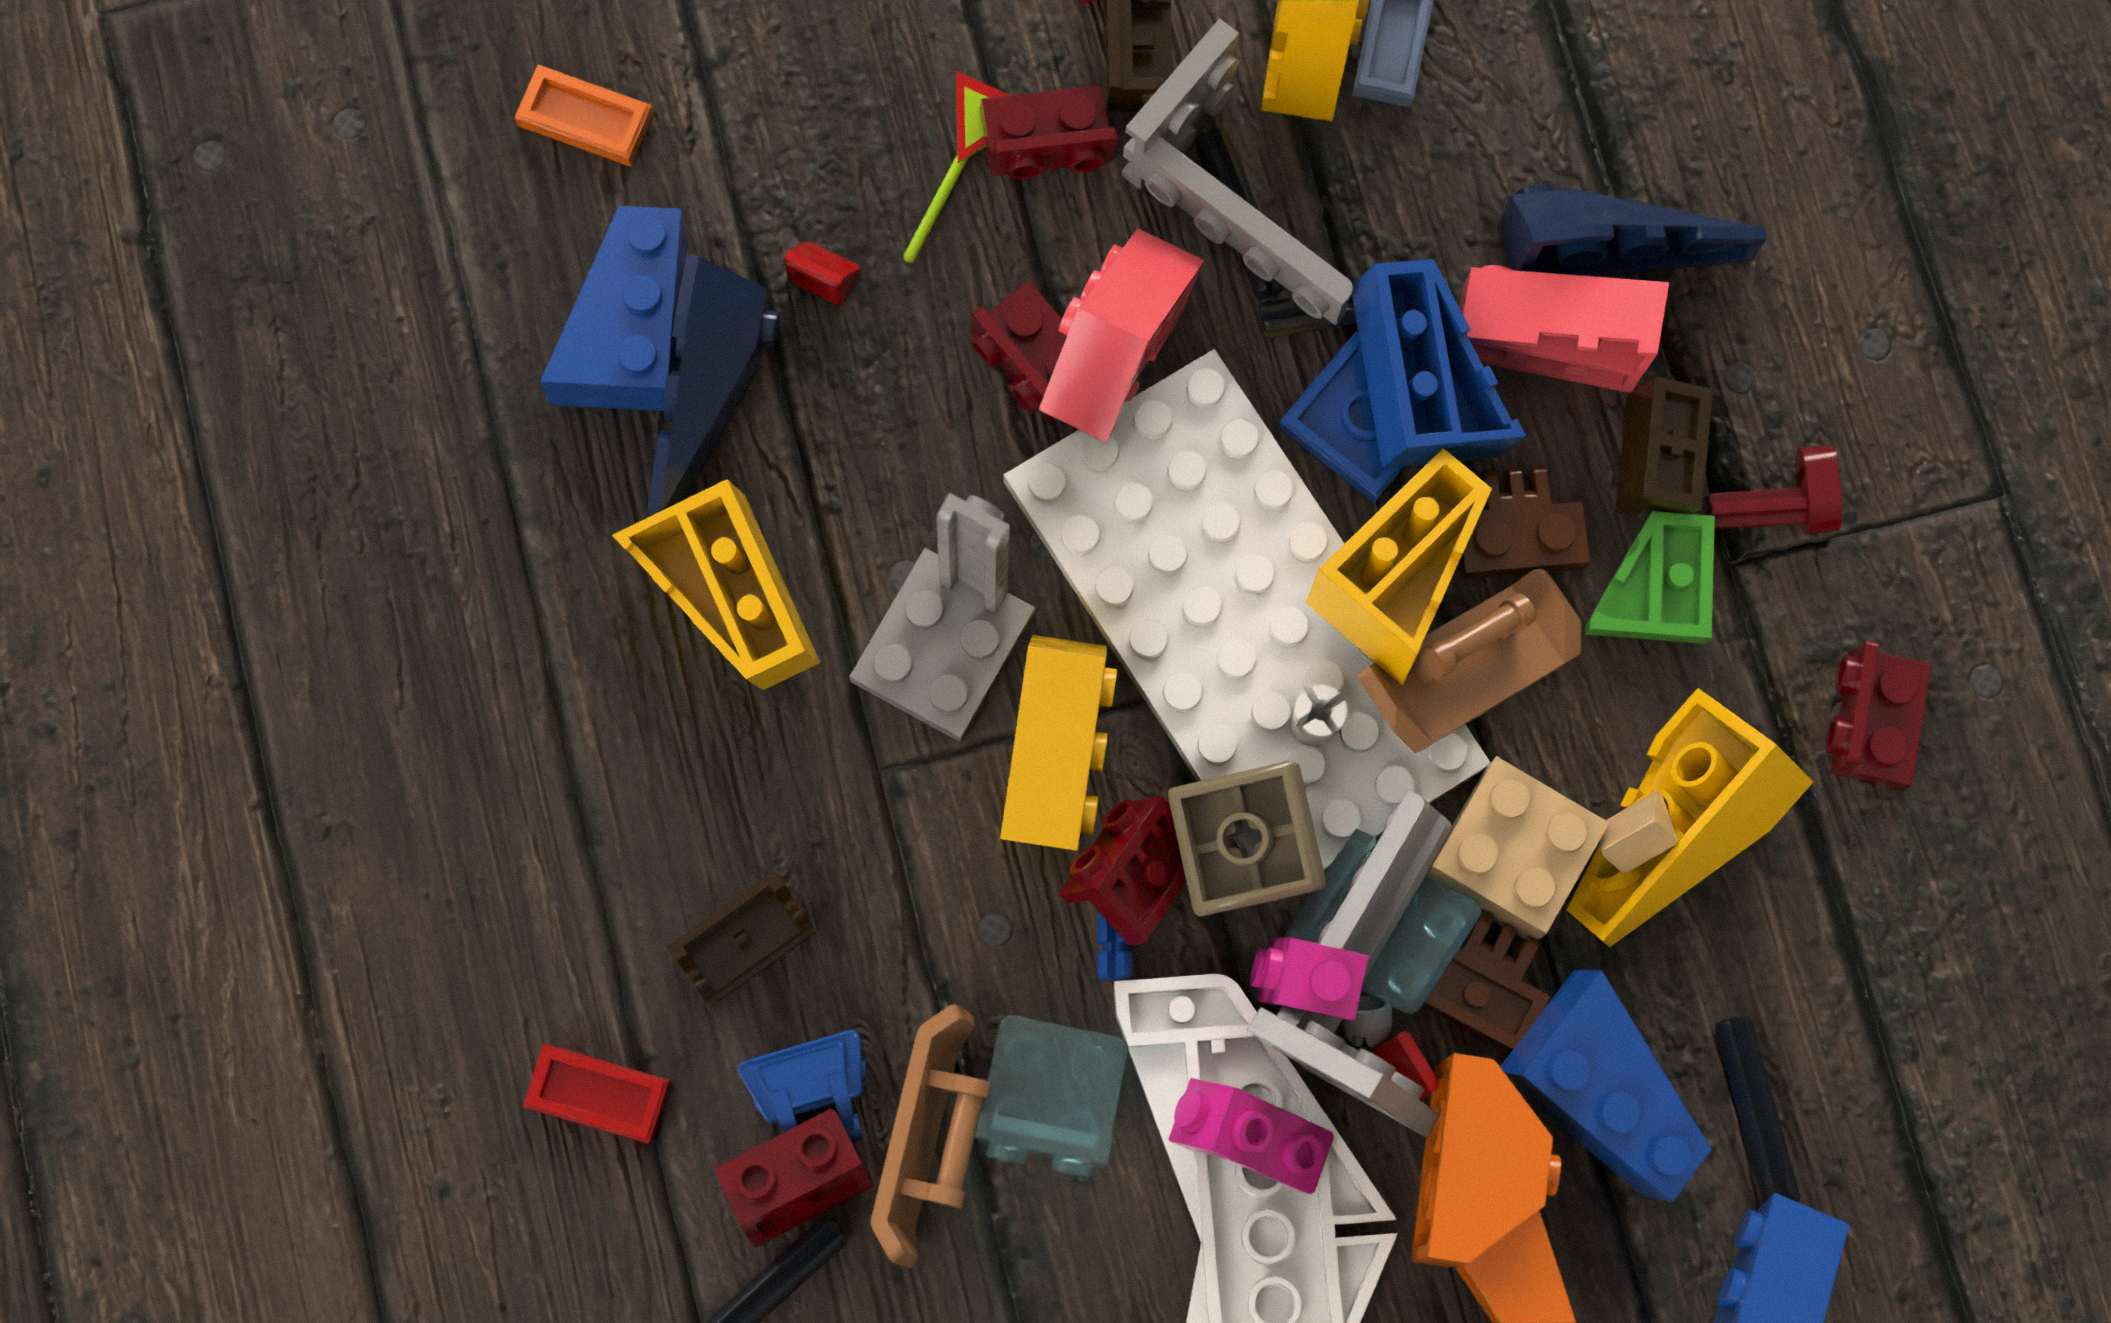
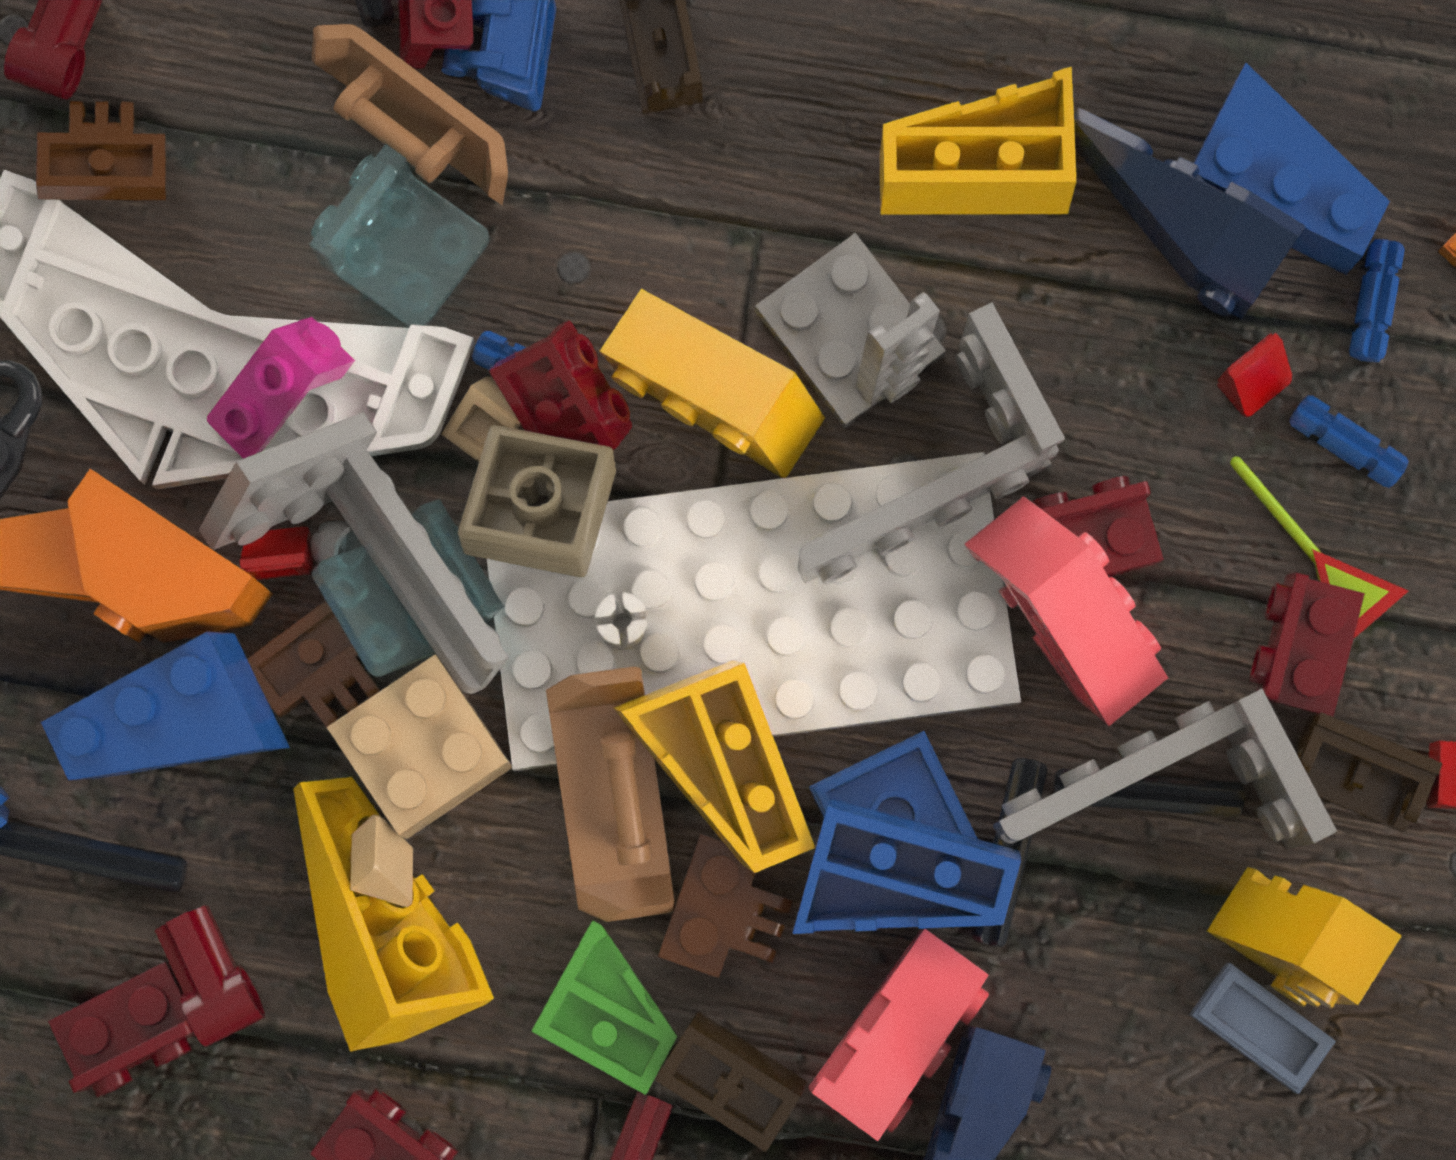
camera: 120 degrees right, 5 degrees up
(709, 193) = (1376, 300): none -> blue axle
(845, 169) = (1349, 441): none -> blue axle
(959, 457) = (1014, 415): none -> light grey bracket
(1184, 940) = (475, 415): none -> tan slope
(1309, 977) = (382, 489): dark pink bracket -> none
(1818, 935) = (216, 992): none -> dark red piece
(1893, 1001) = (123, 1030): none -> dark red bracket

